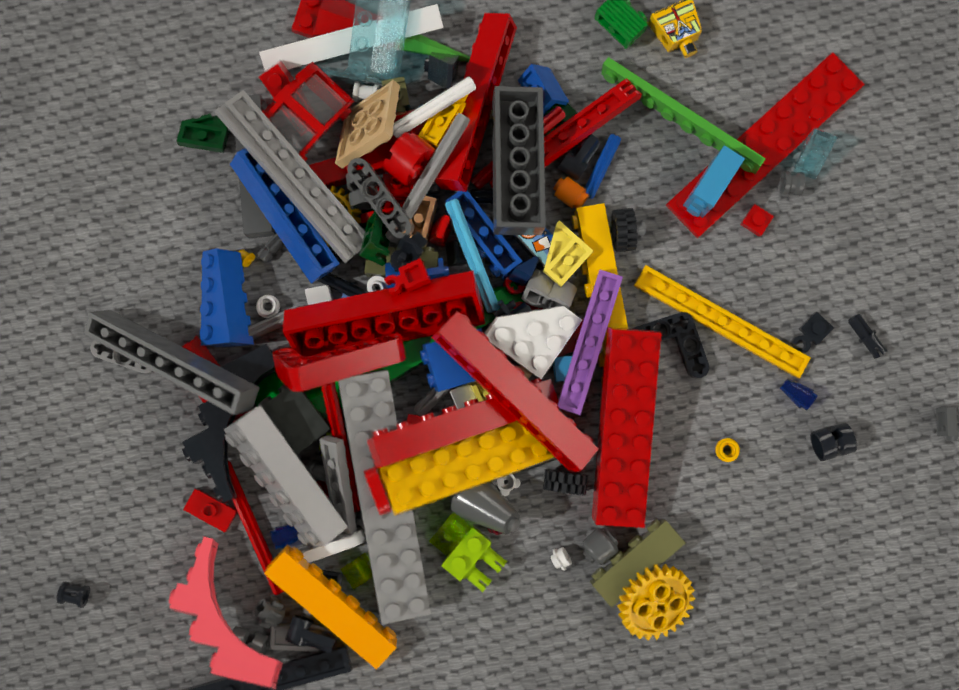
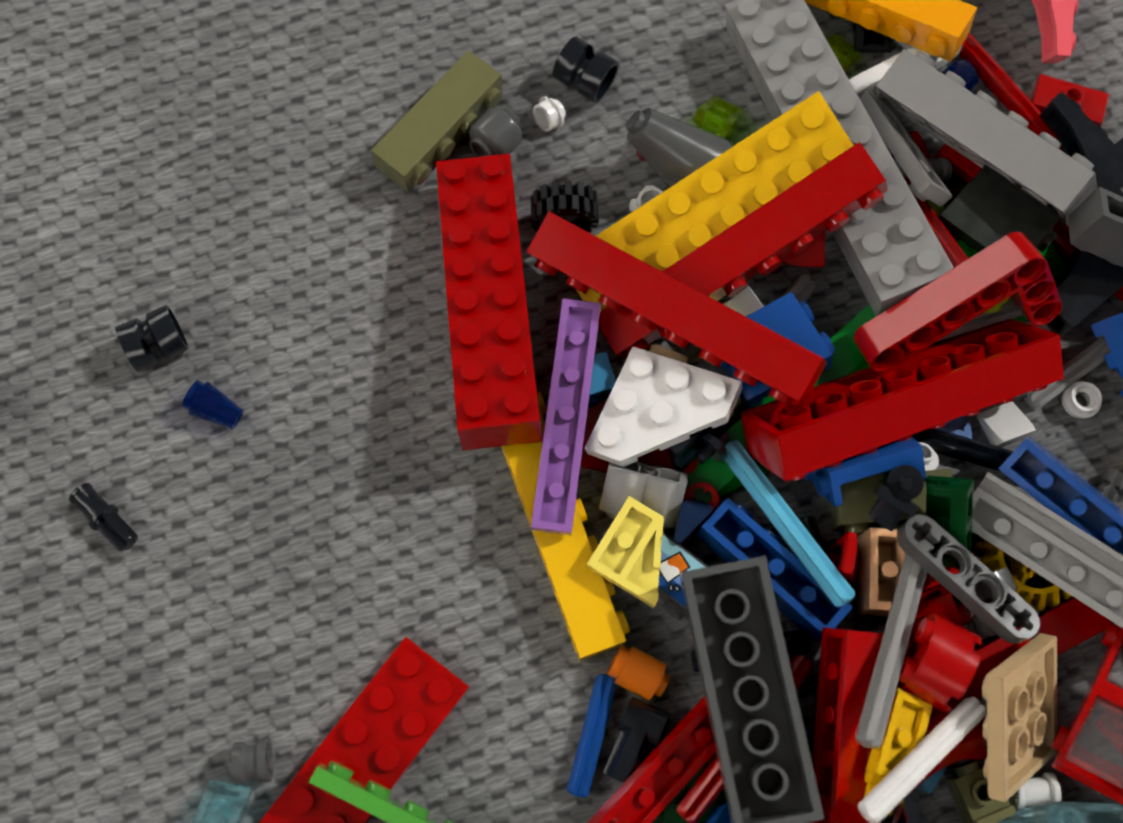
camera: 165 degrees right, 10 degrees down
(377, 491) = (854, 122): red beam -> none
(411, 276) = (884, 448): red plate -> none
(465, 555) = (692, 85): lime brick -> none
(532, 585) = (585, 69): none -> black wheel
(624, 230) = (538, 618): black tyre -> none
(656, 602) = (403, 70): yellow gear -> none
(681, 335) = (413, 466): black beam -> none
(713, 182) = (398, 720): dark azure brick -> none
(722, 322) = (351, 502): yellow tile -> none
(735, 450) = (315, 294): yellow plate -> none
(757, 220) = (307, 686): red plate -> none
(813, 330) = (194, 514): black plate -> none

